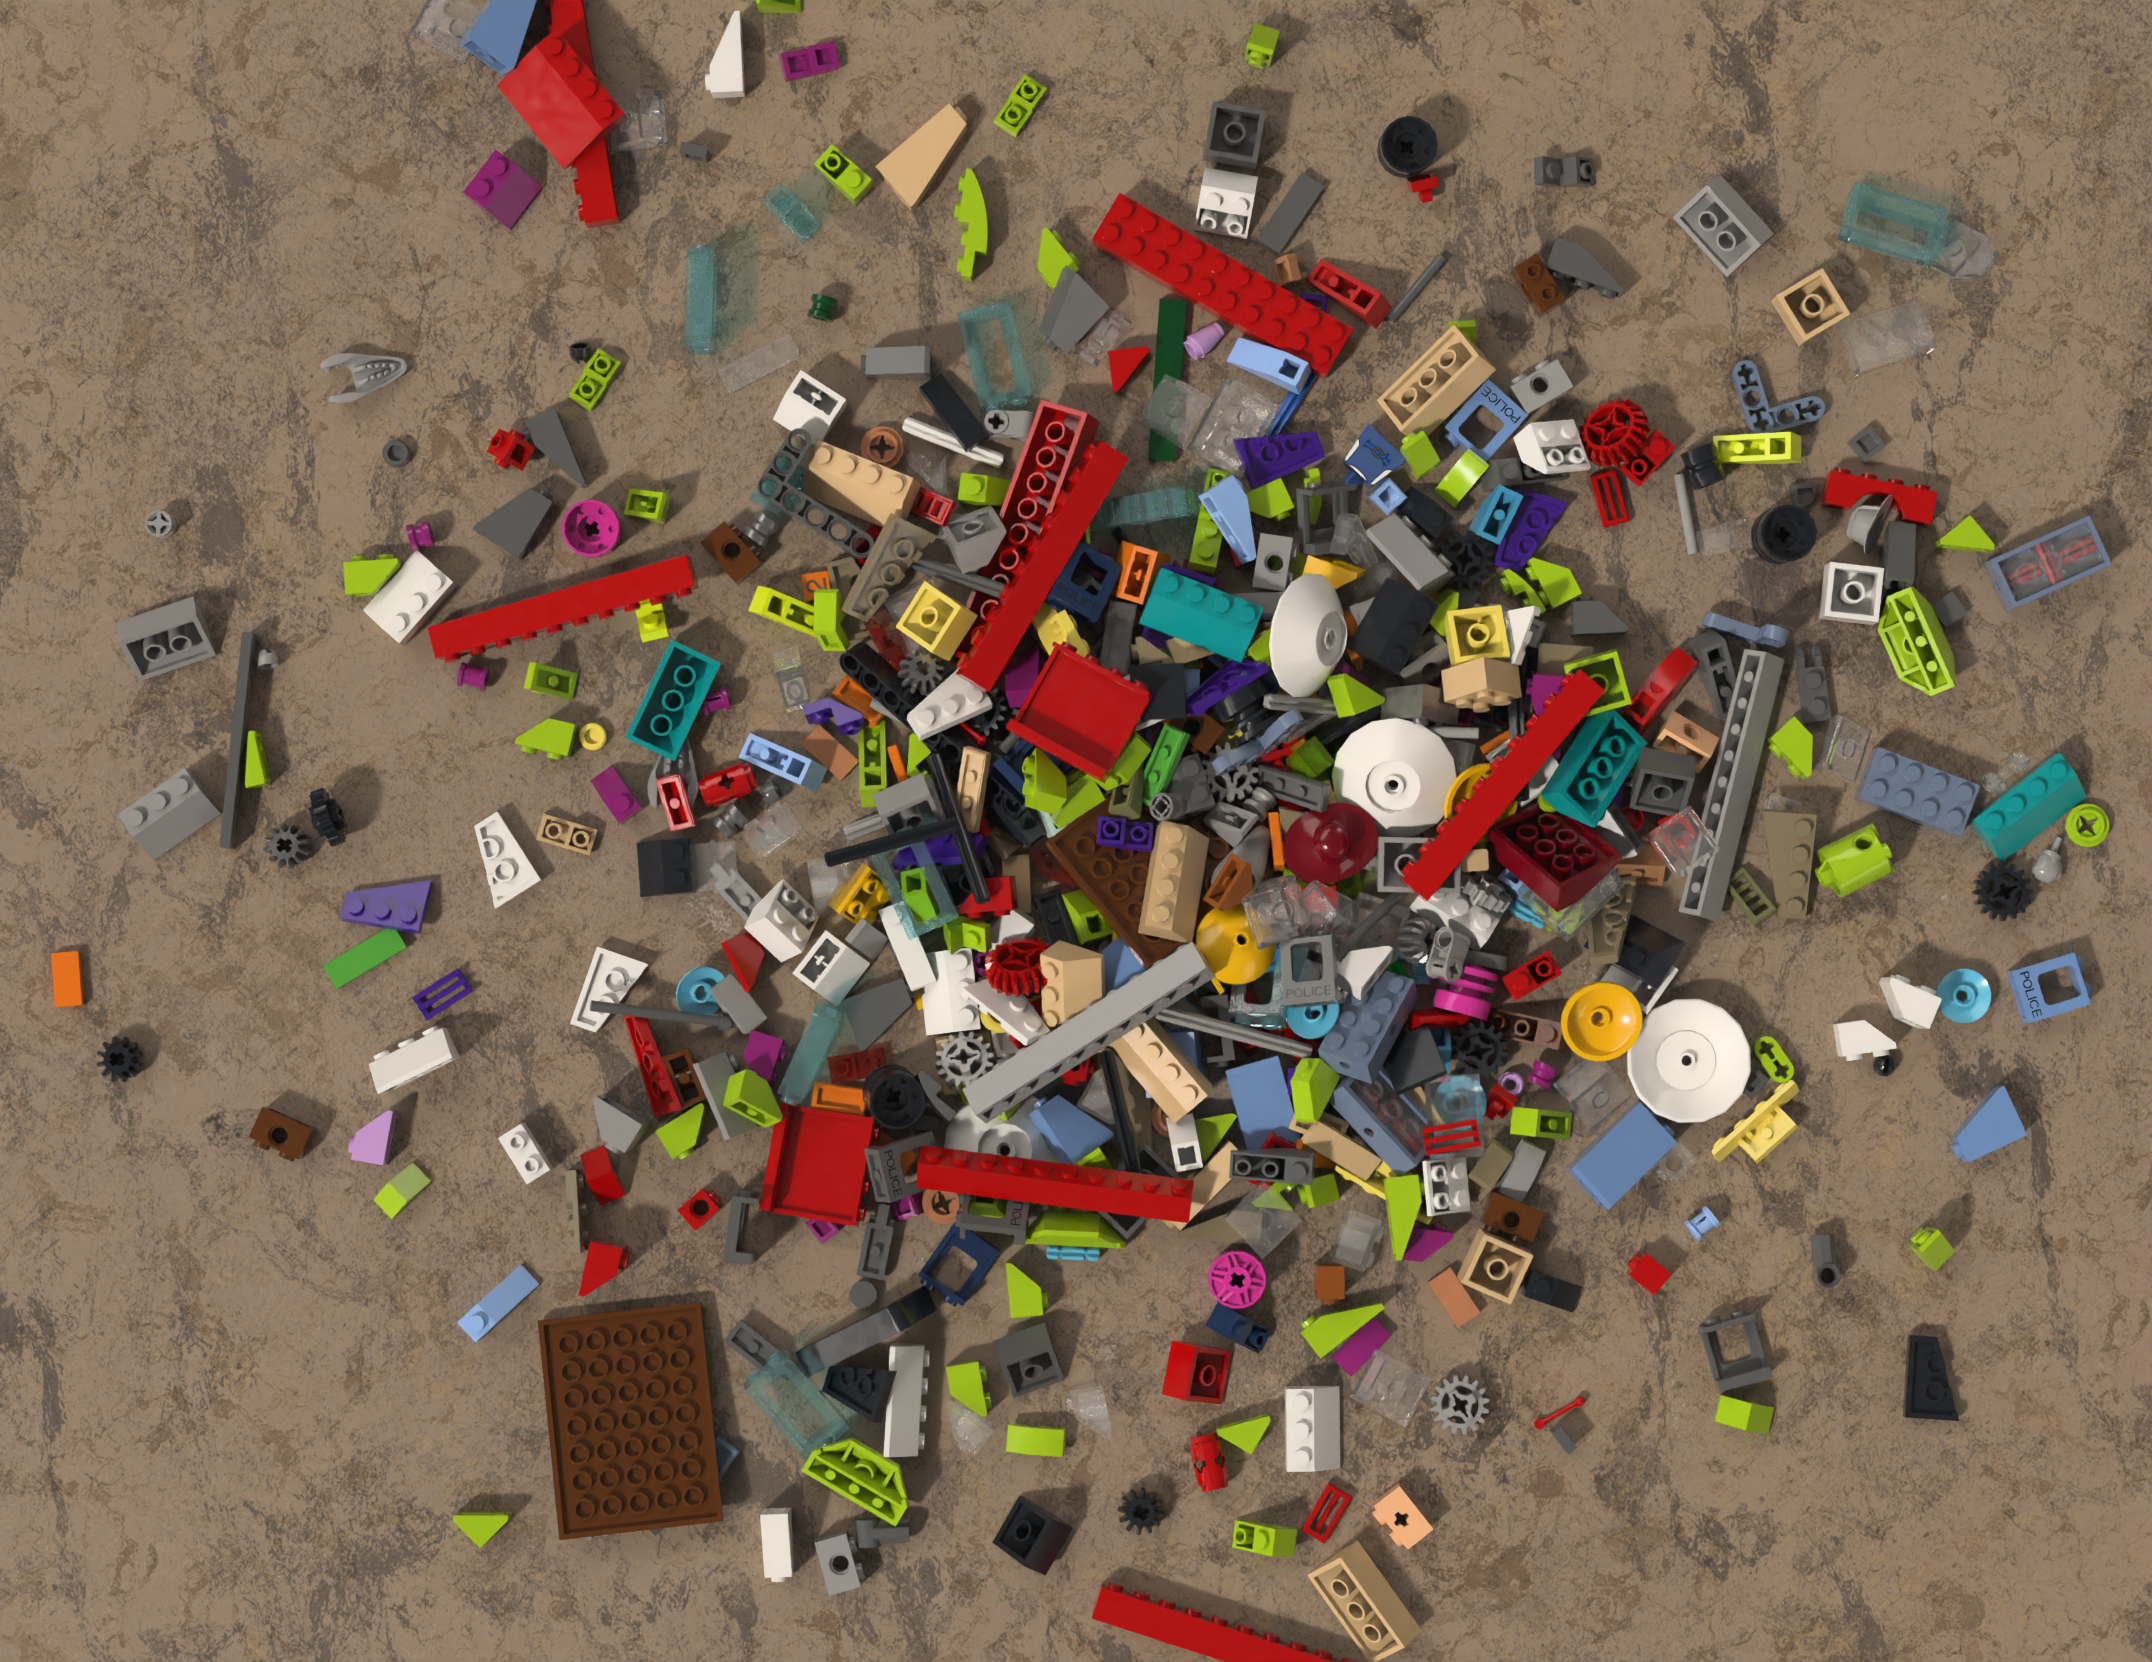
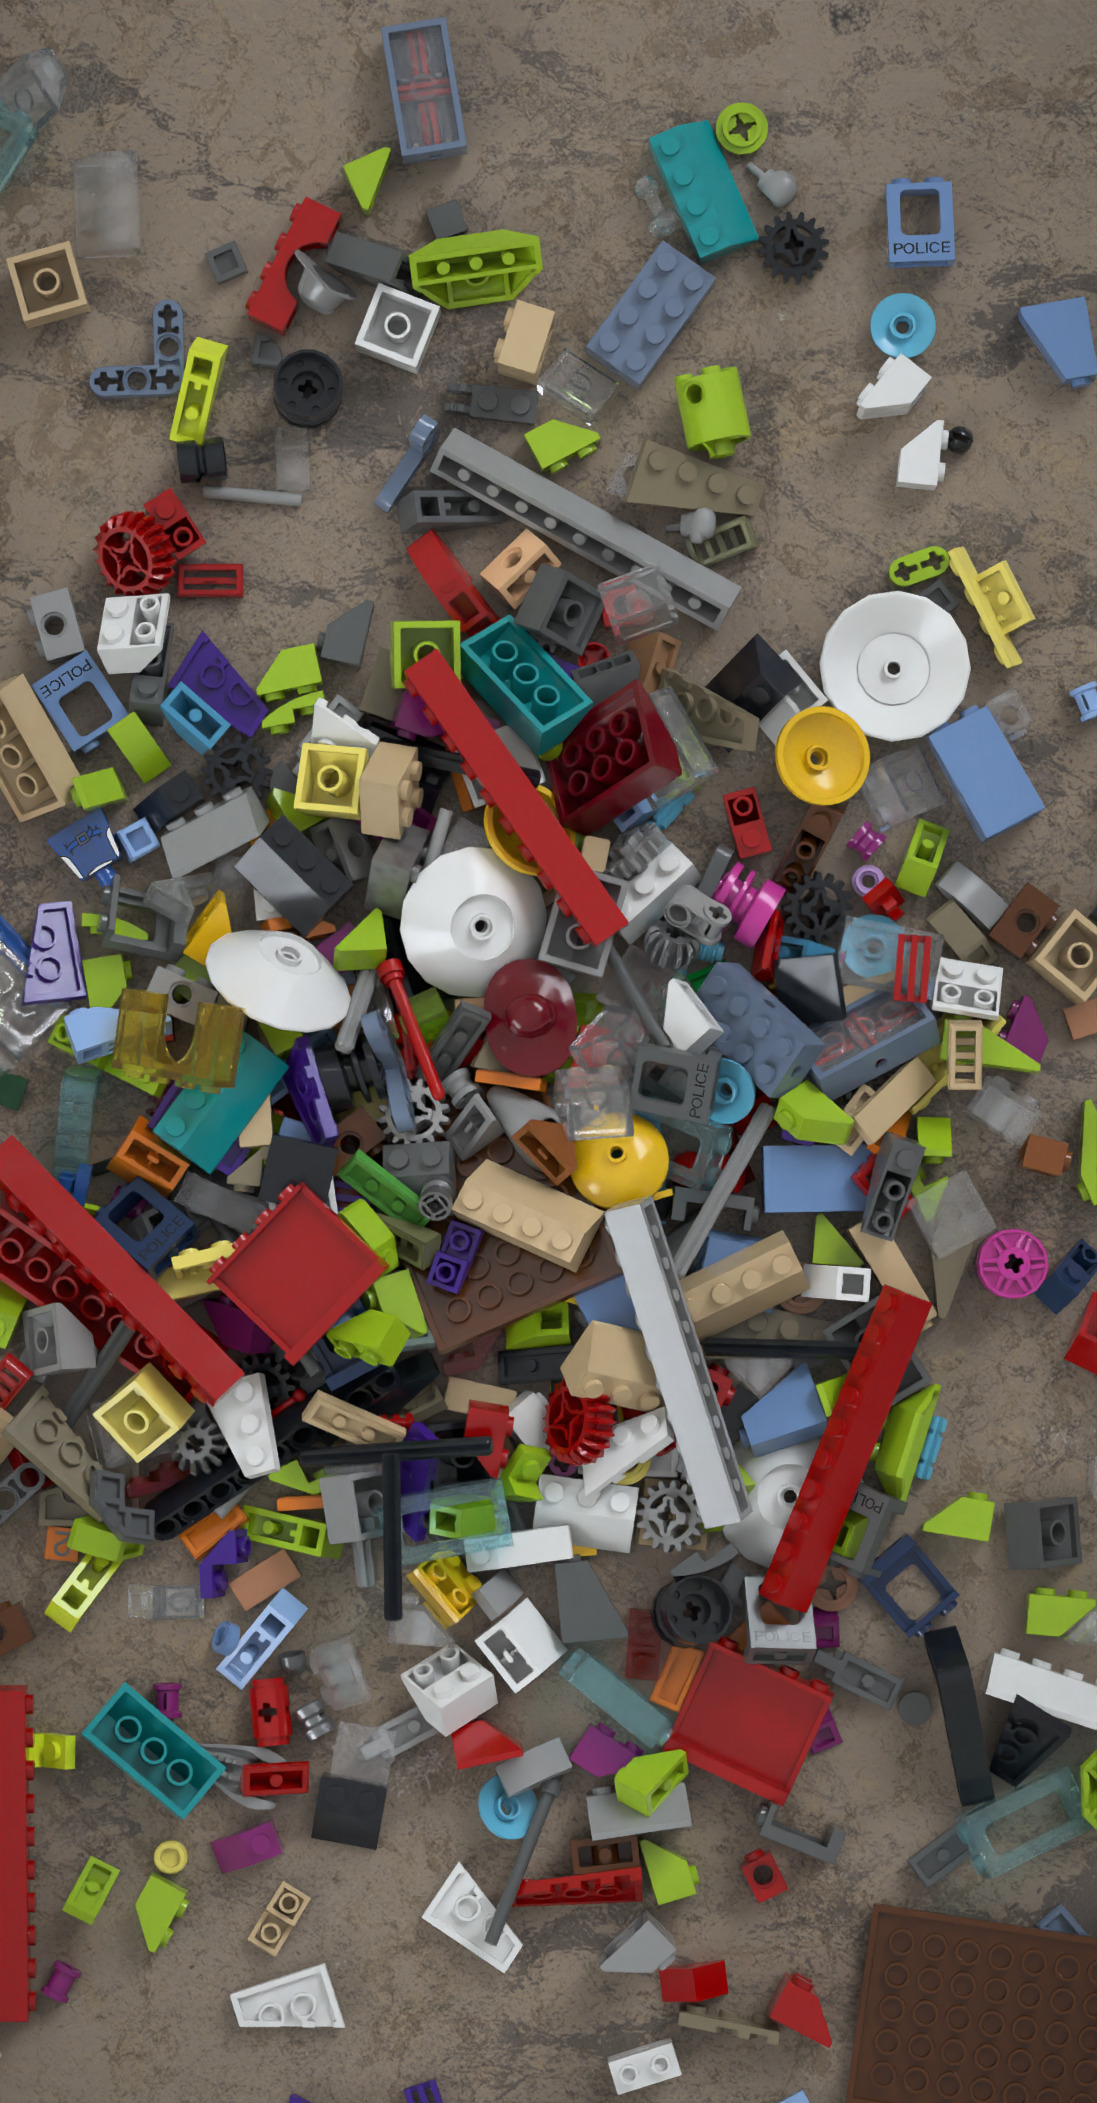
camera: 75 degrees left, 0 degrees up
(775, 734) = (226, 1638): none -> medium blue tile
(859, 612) = (108, 1501): none -> dark grey tile
(1104, 521) = (78, 1182): none -> blue tile
(1233, 597) = (143, 1050): none -> clear yellow arch
(1334, 725) = (392, 975): none -> red piece
(1416, 1190) = (964, 1083): none -> tan slope
(1758, 872) = (697, 525): none -> light grey piece
(1868, 697) = (525, 343): none -> tan brick

